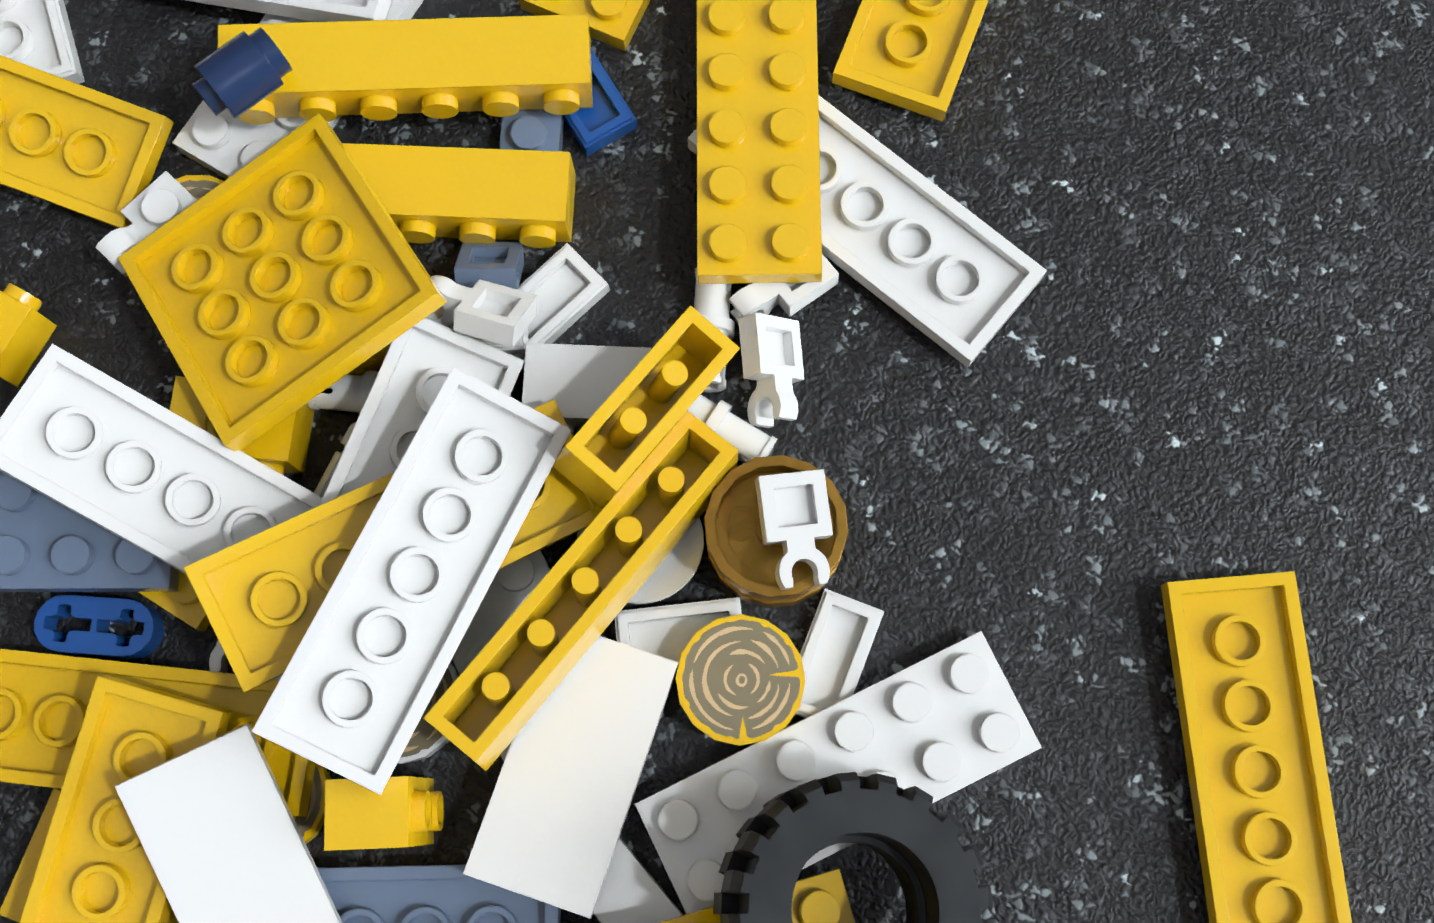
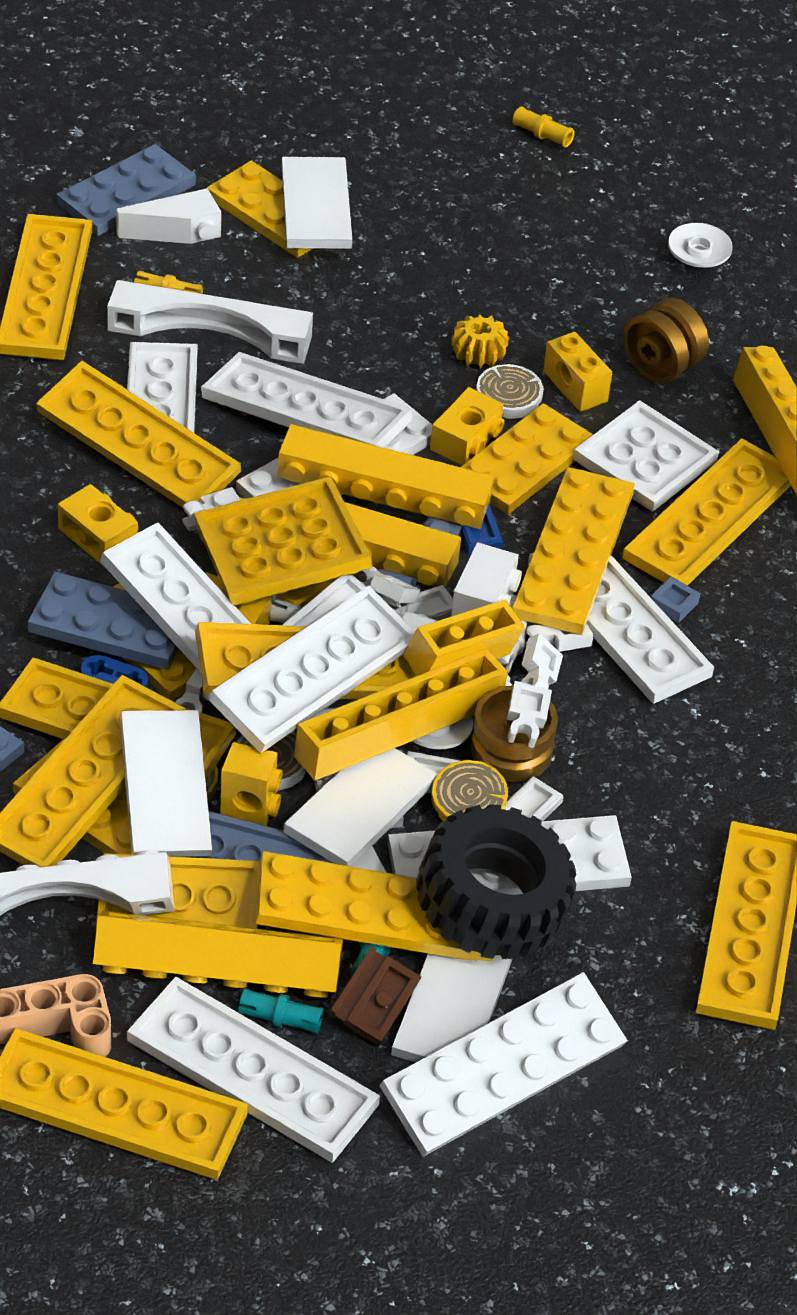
camera: 10 degrees right, 30 degrees down
(241, 73) = (298, 442): dark blue brick -> none
(643, 264) = (487, 578): none -> white brick
(941, 145) = (675, 599): none -> sand blue plate

